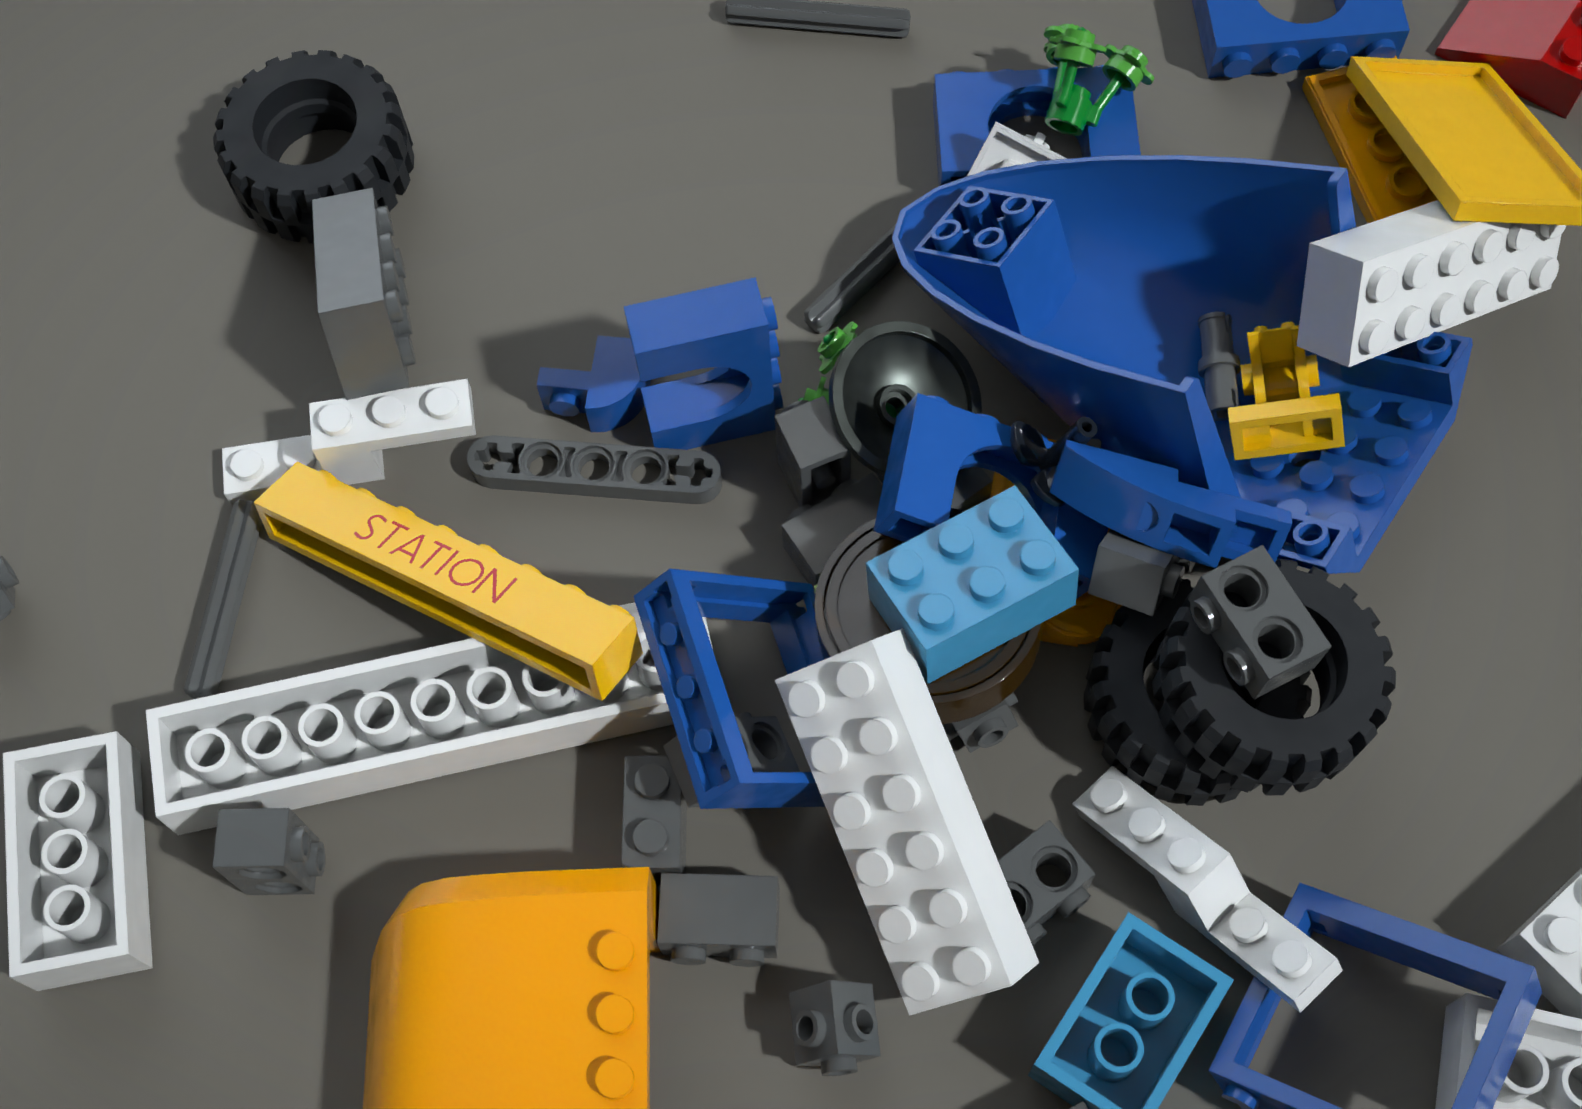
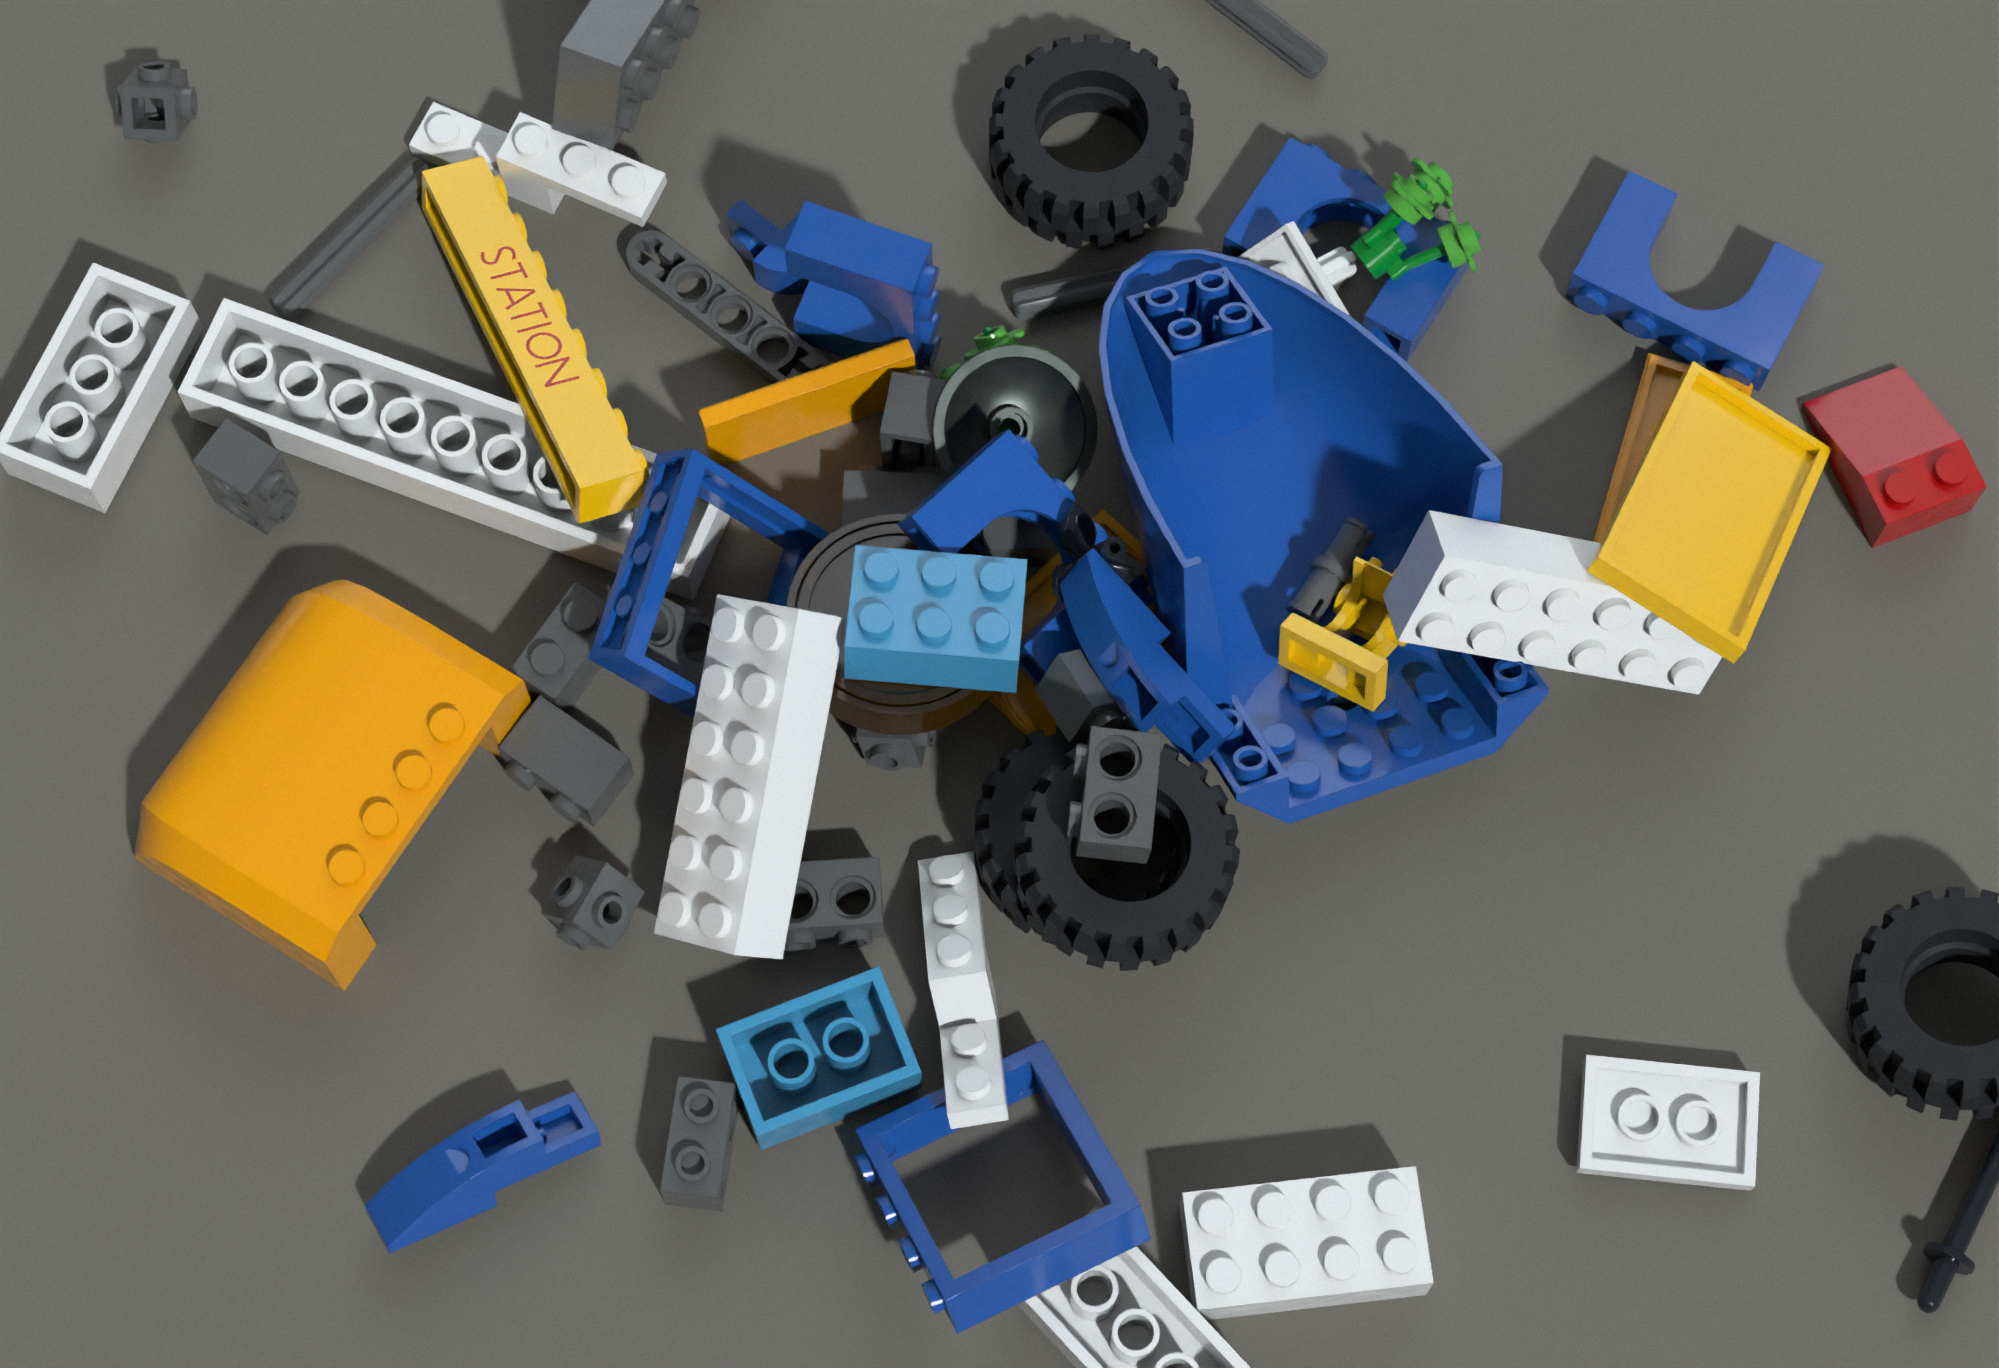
camera: 30 degrees right, 5 degrees up
(713, 488) = (803, 404): none -> light orange tile
(776, 114) = (1095, 80): none -> black tyre

